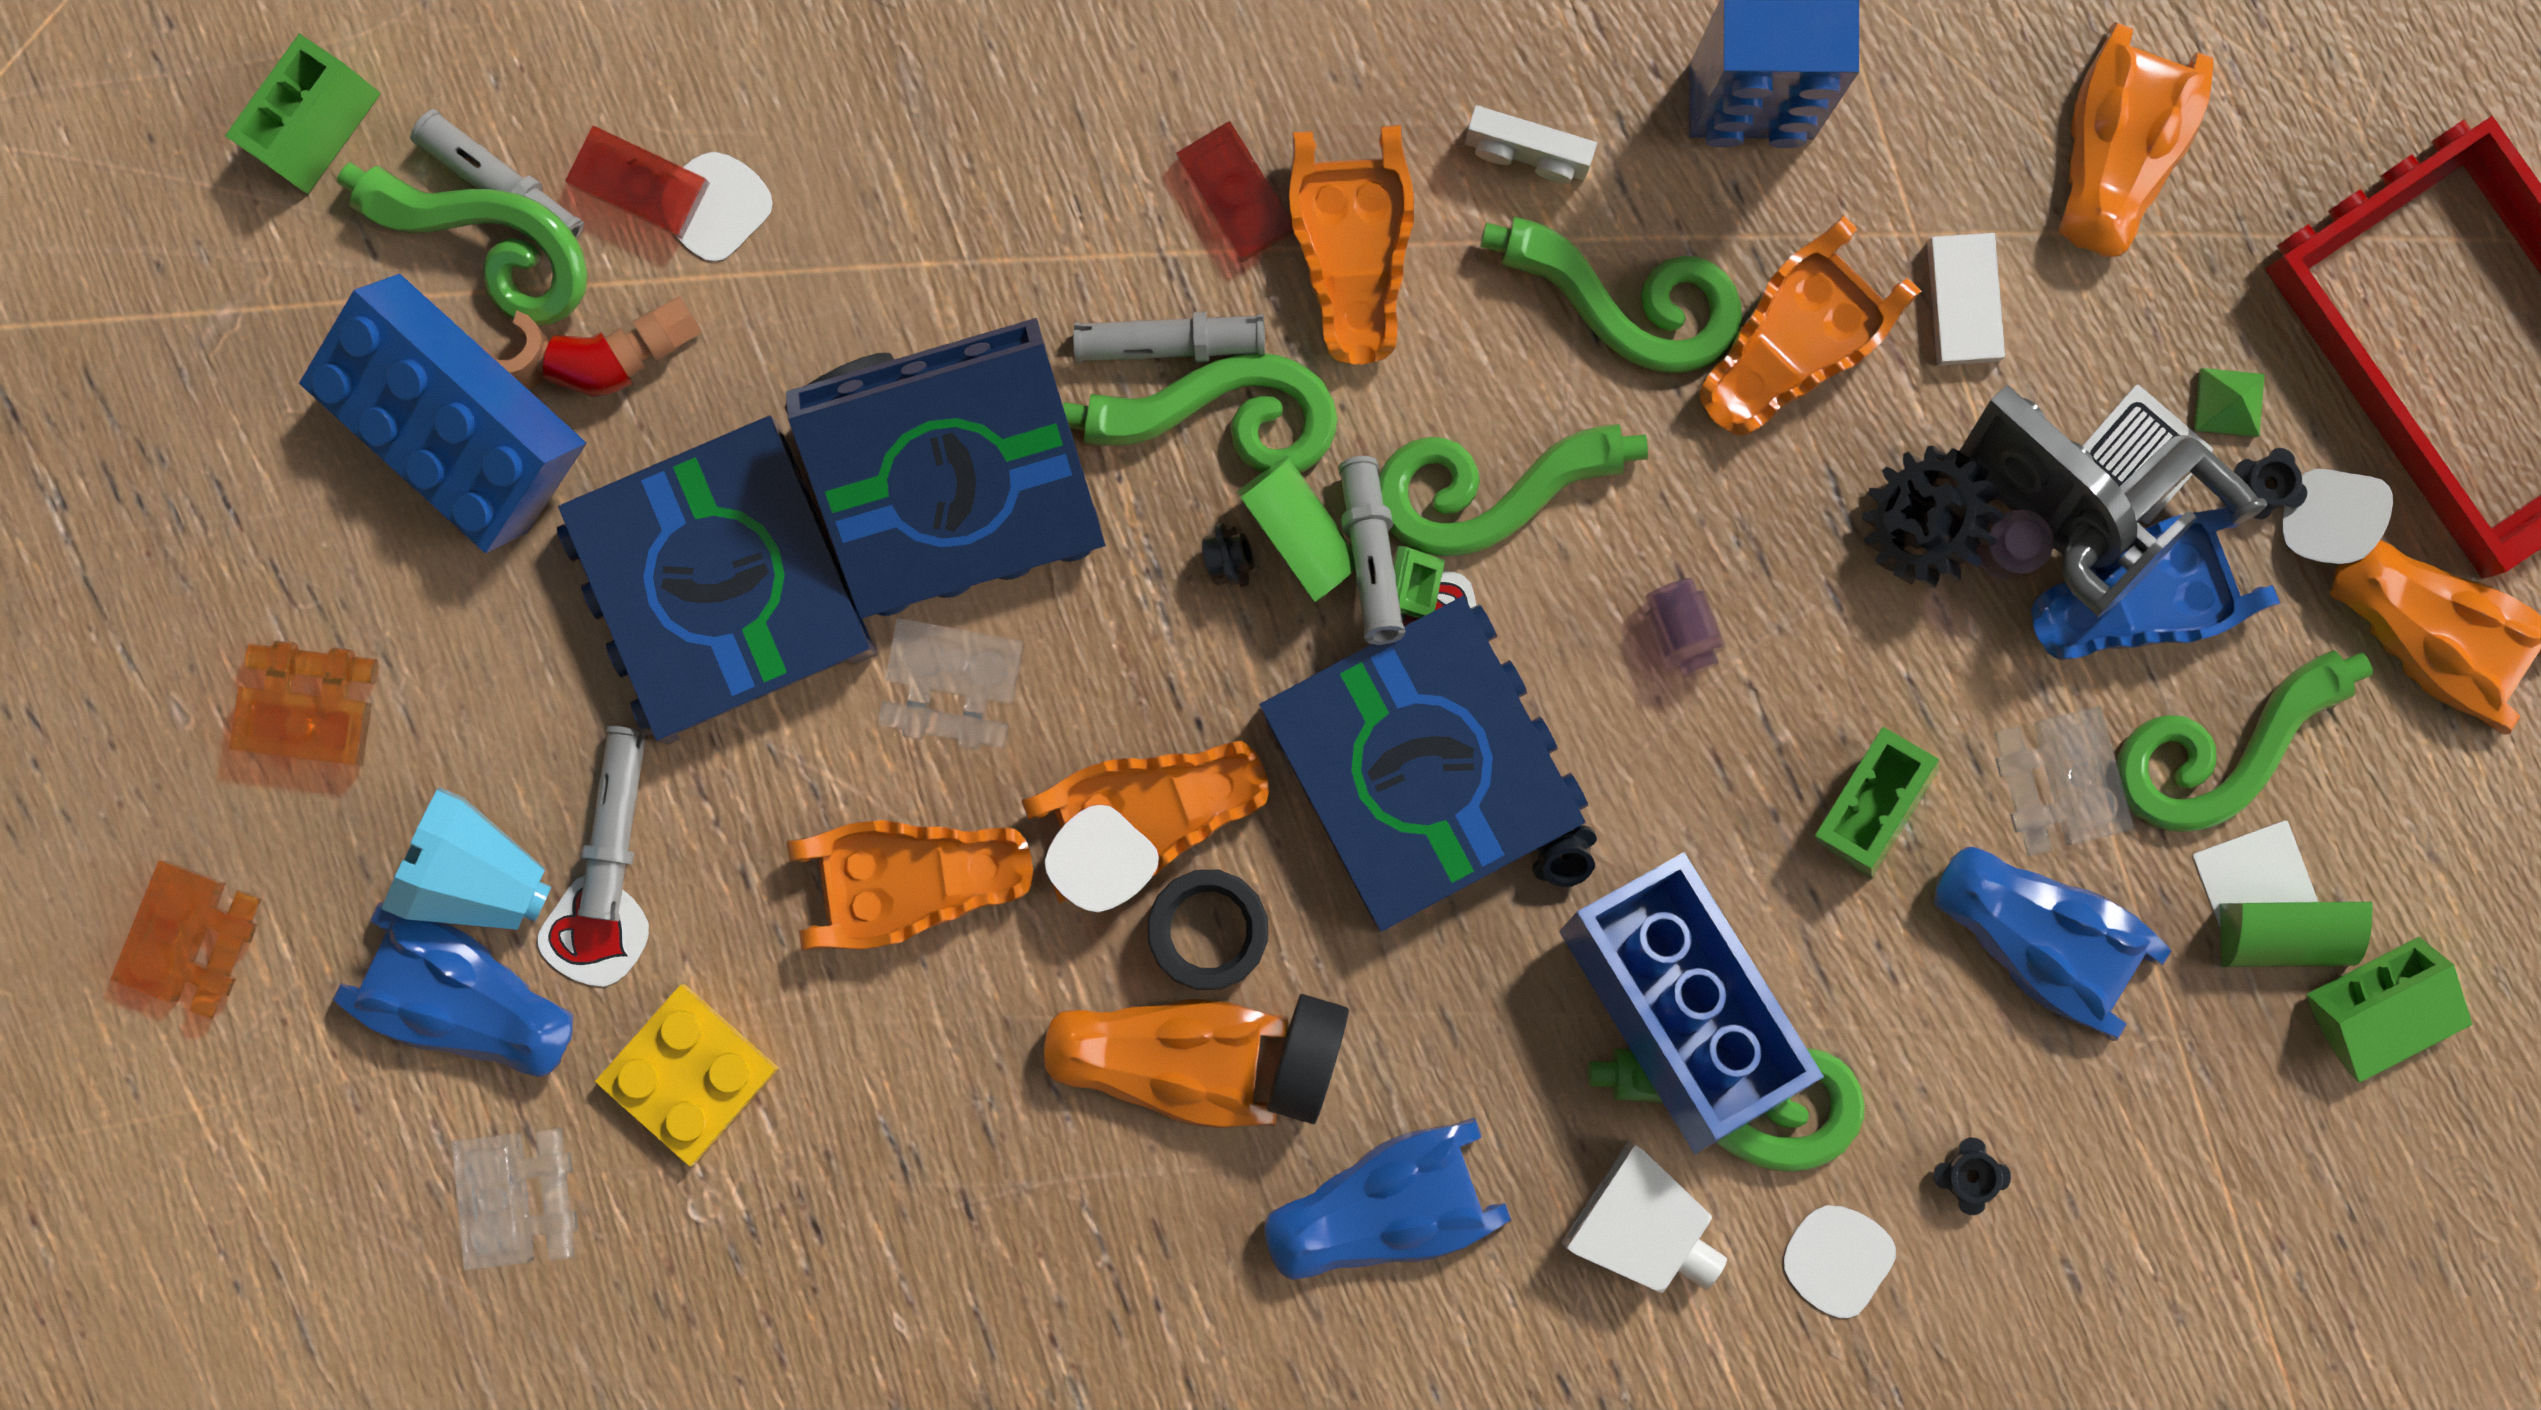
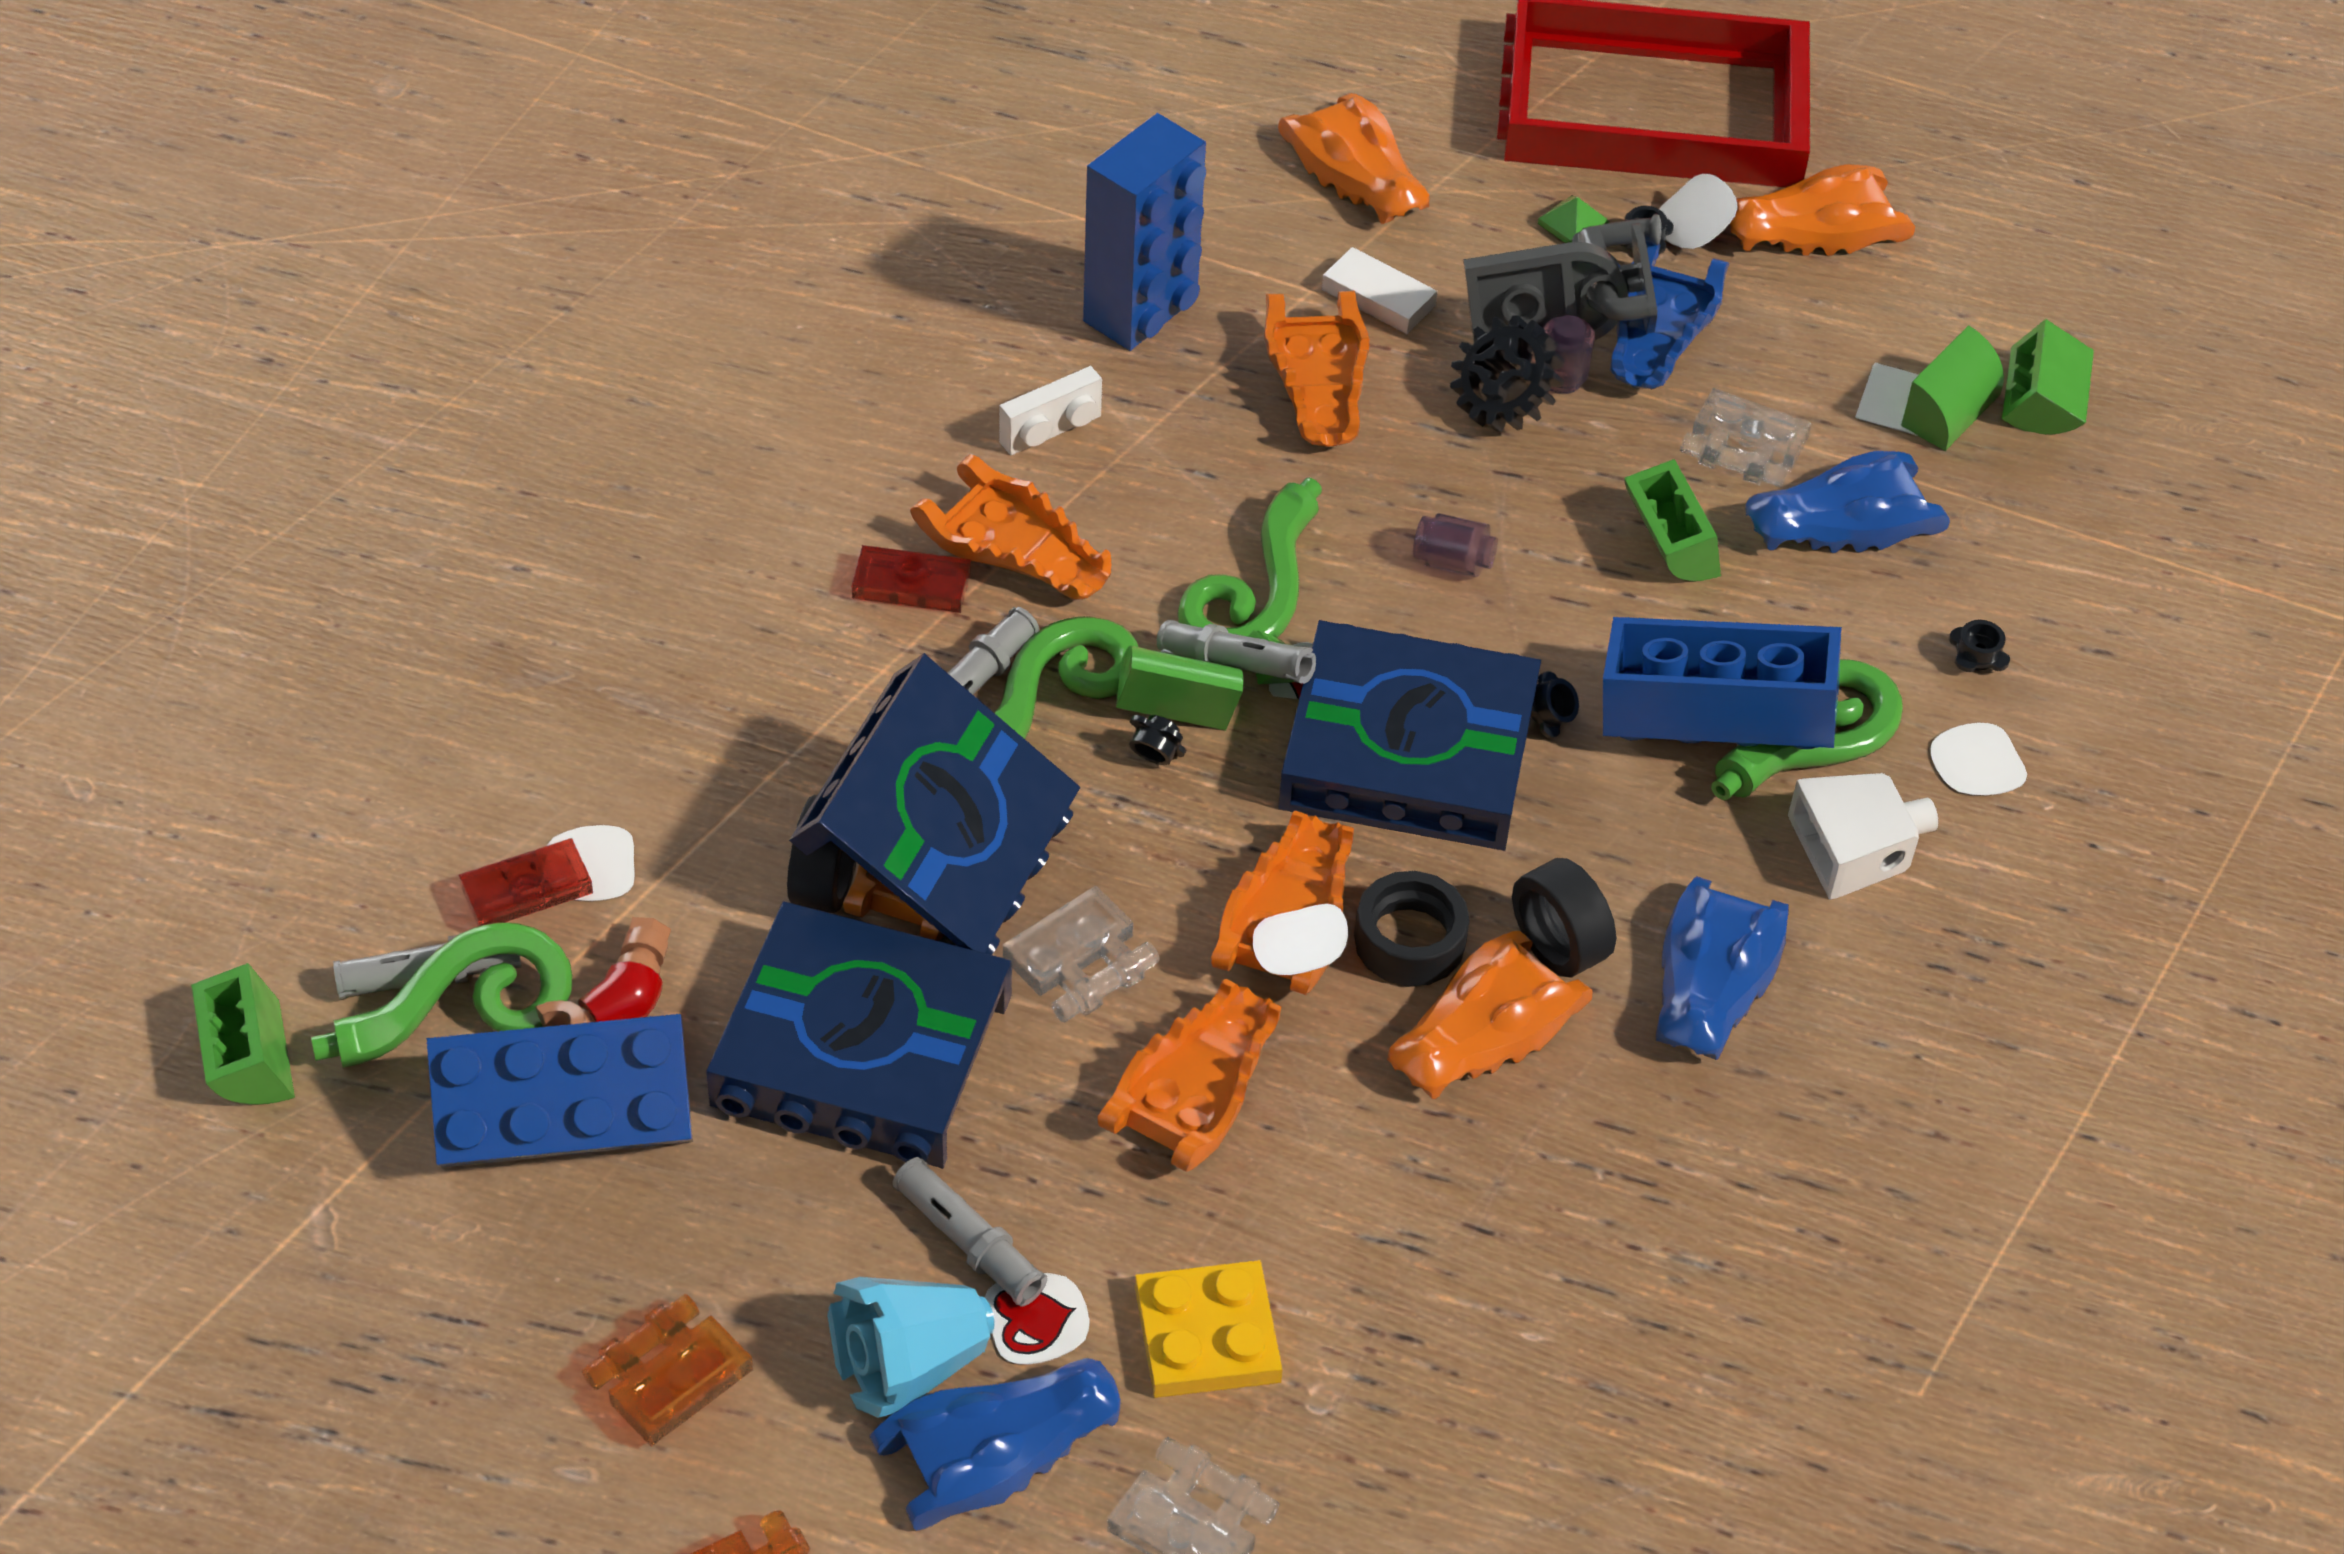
camera: 55 degrees left, 35 degrees down
(1552, 256) = (1142, 449): bright green plant -> none
(2299, 696) = (1798, 301): bright green plant -> none

